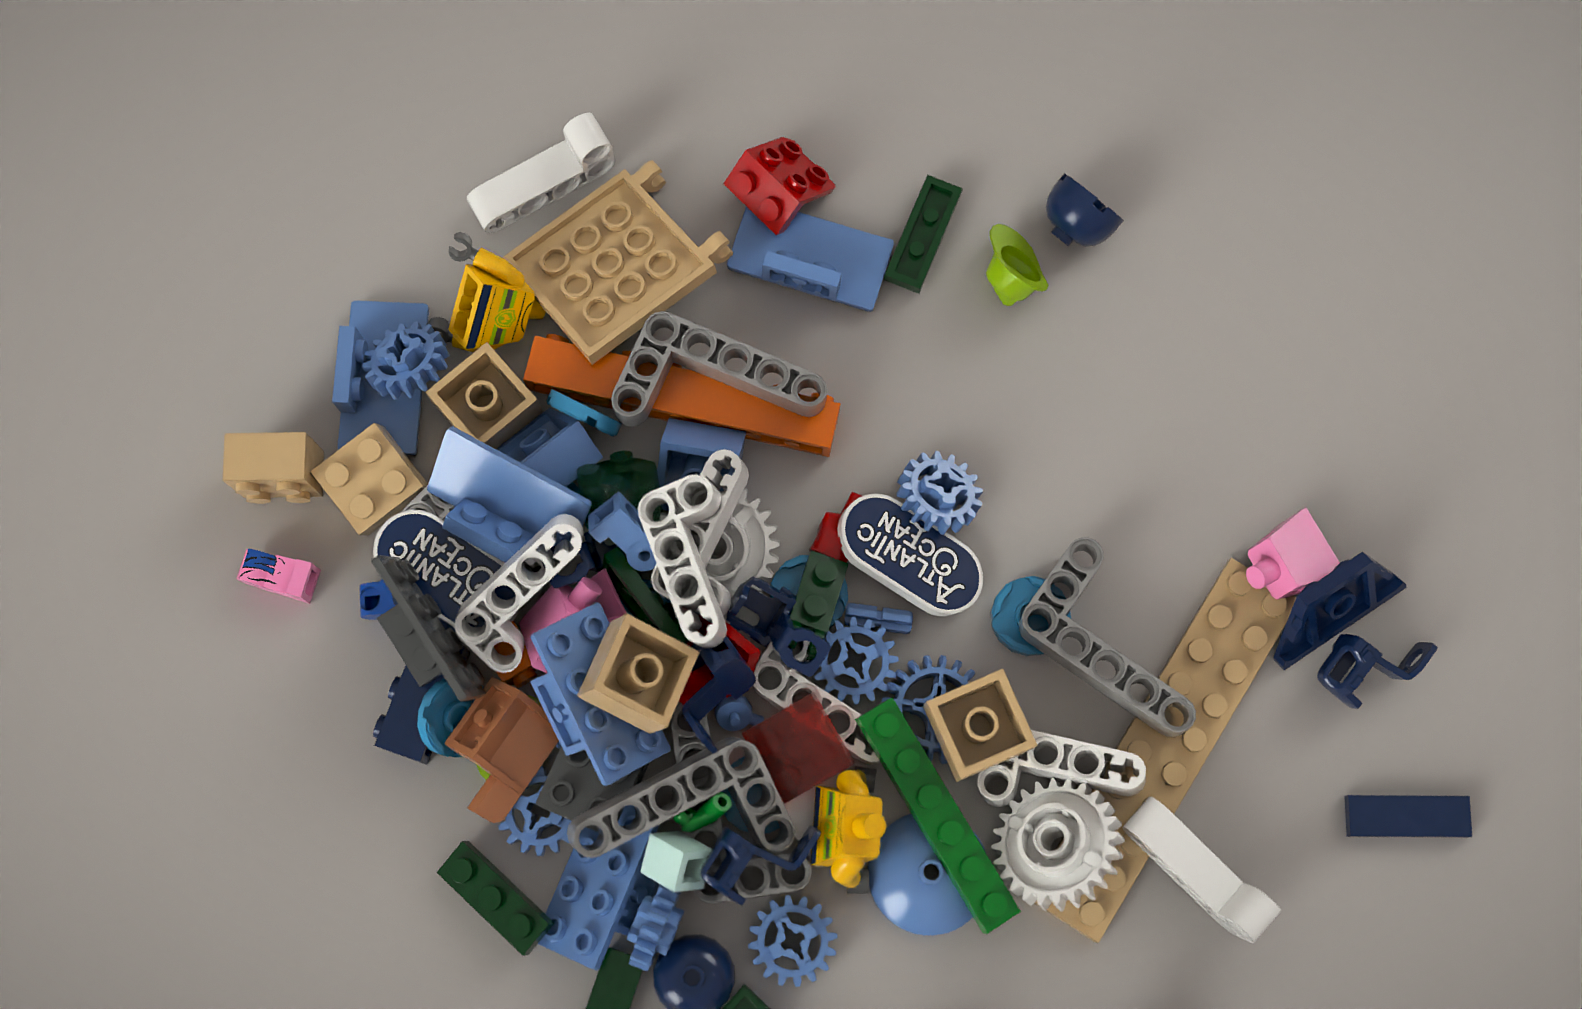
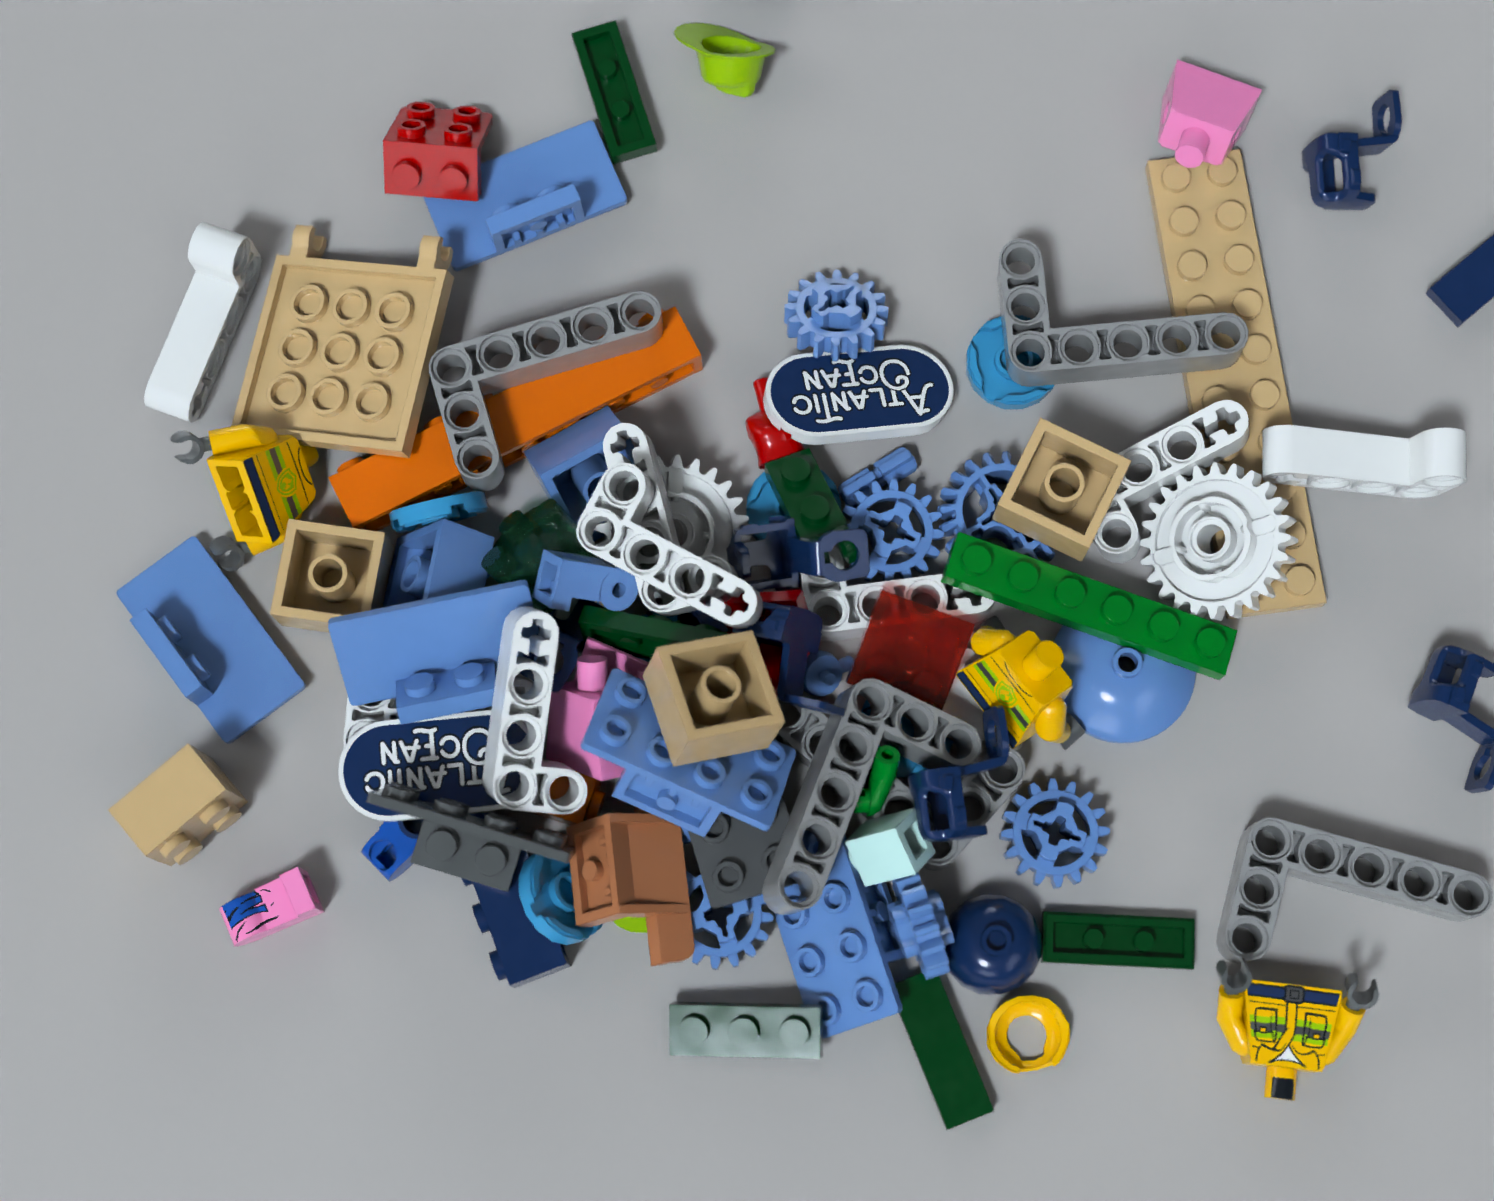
camera: 35 degrees left, 0 degrees up
(370, 479) = (285, 742): tan brick -> none
(405, 360) = (222, 601): medium blue gear -> none
(1334, 605) = (1276, 127): dark blue wing -> none

